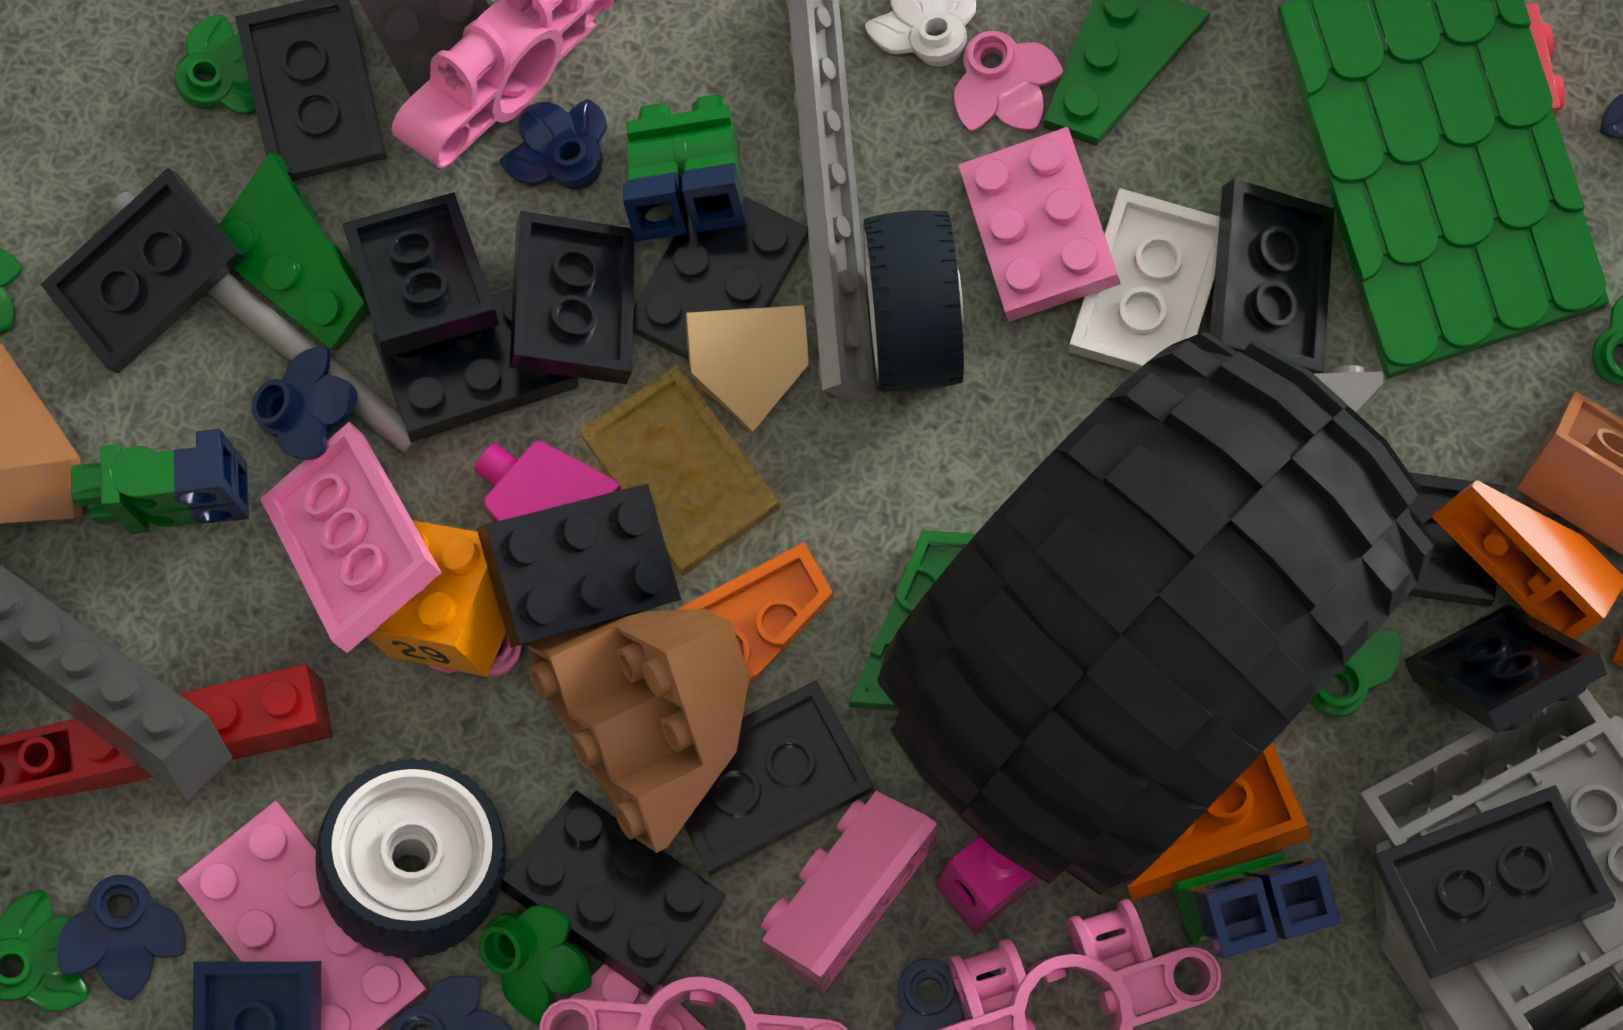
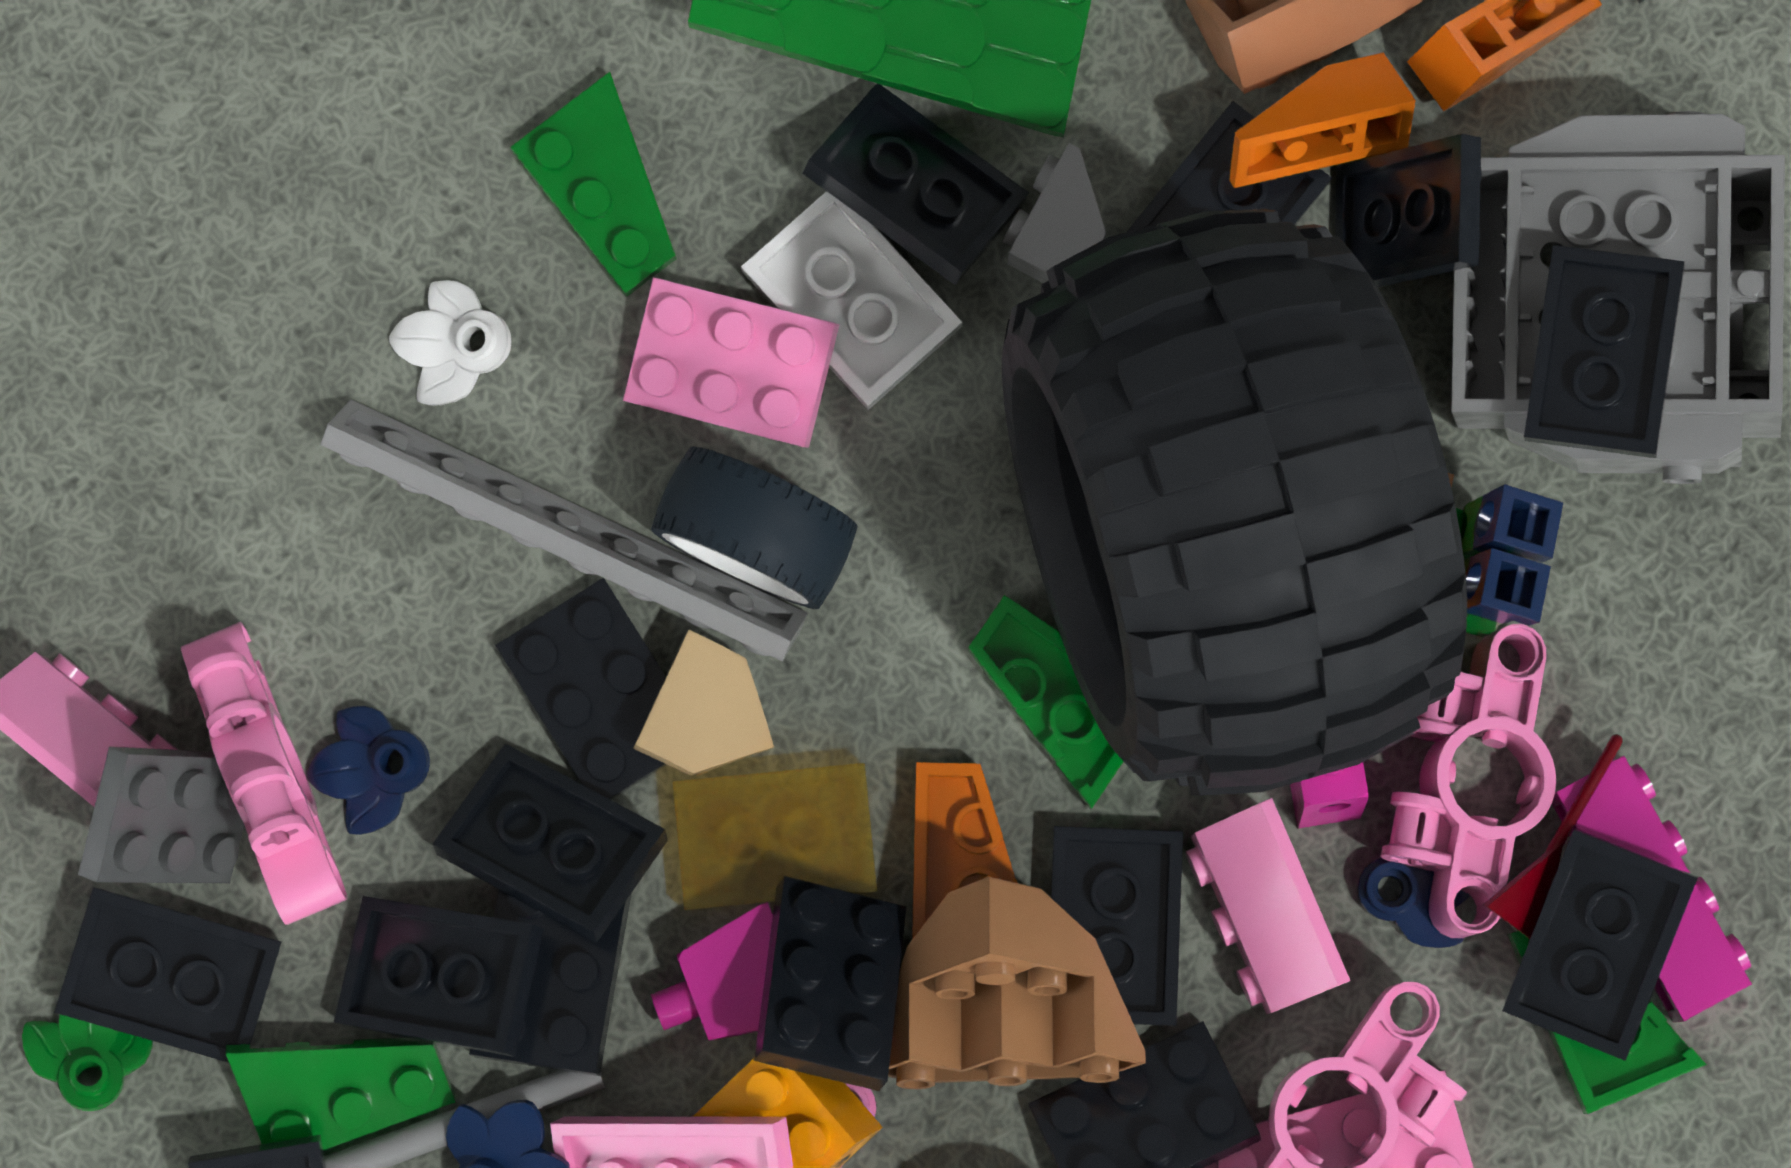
camera: 65 degrees left, 10 degrees up
(683, 163) = (457, 661): hips -> none
(1007, 90) = (571, 310): bright pink plate -> none

